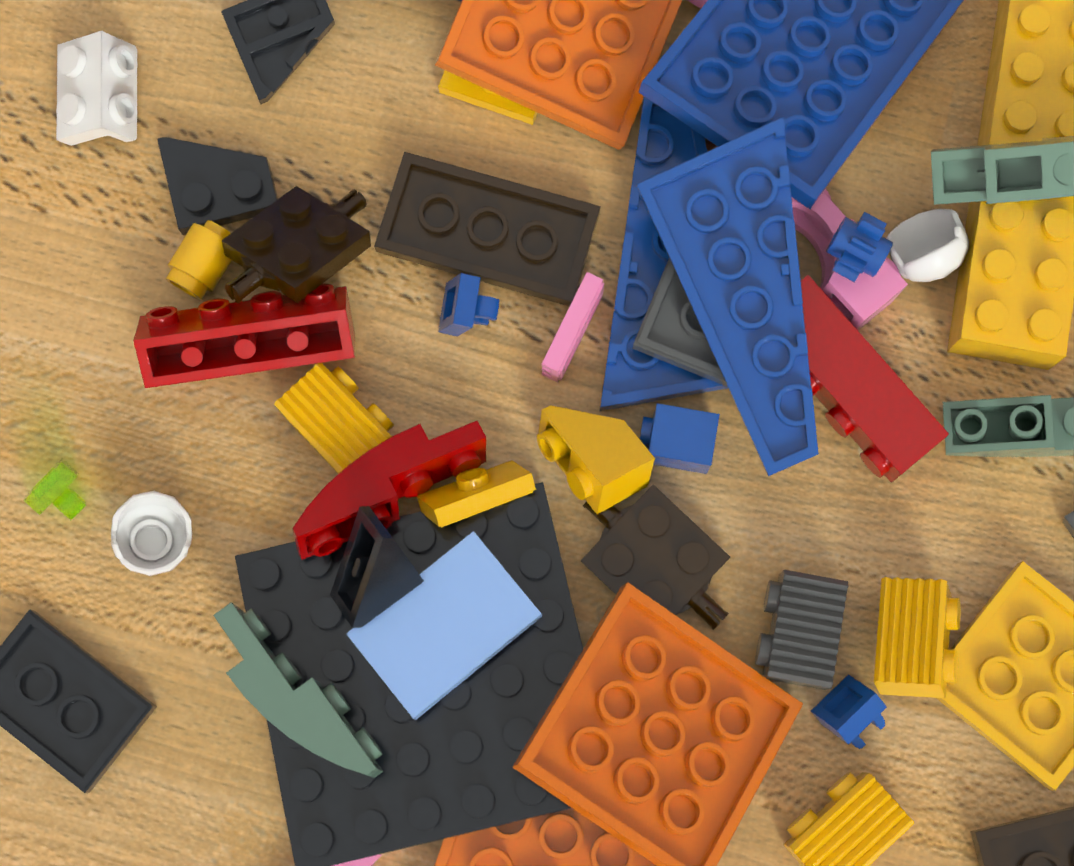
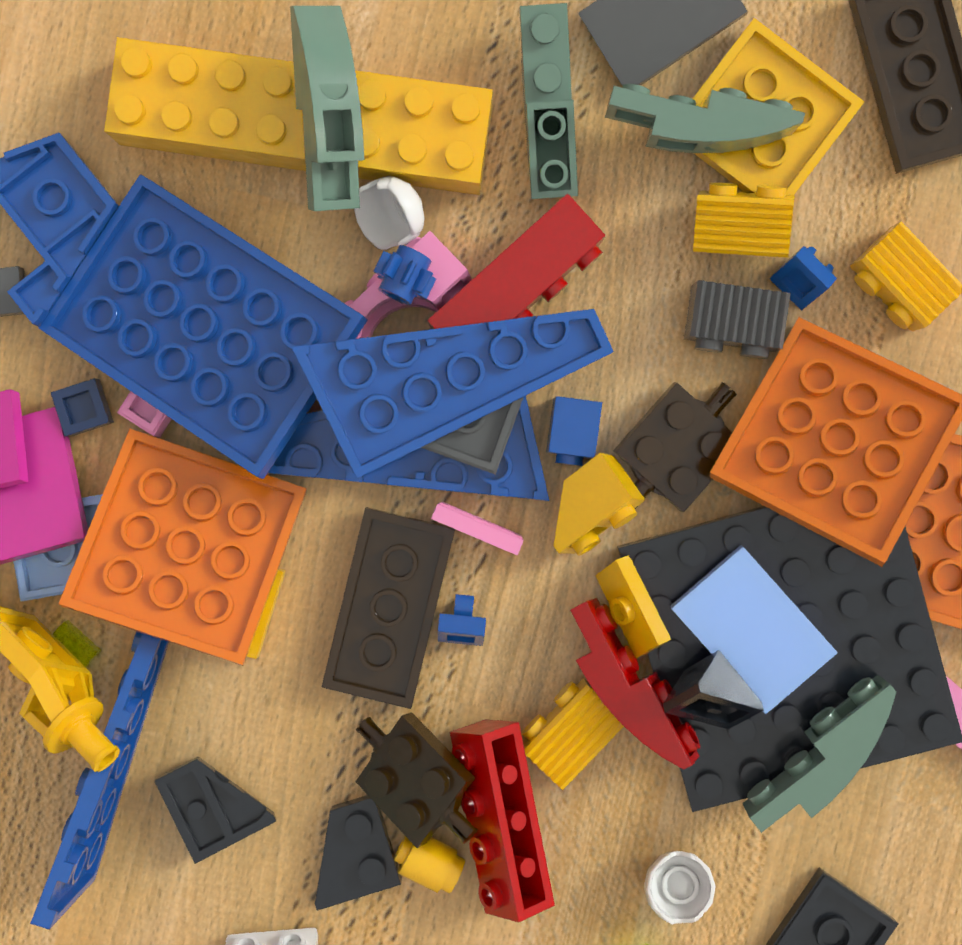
camera: 90 degrees left, 10 degrees up
(1025, 612) = (722, 124): none -> sand green slope

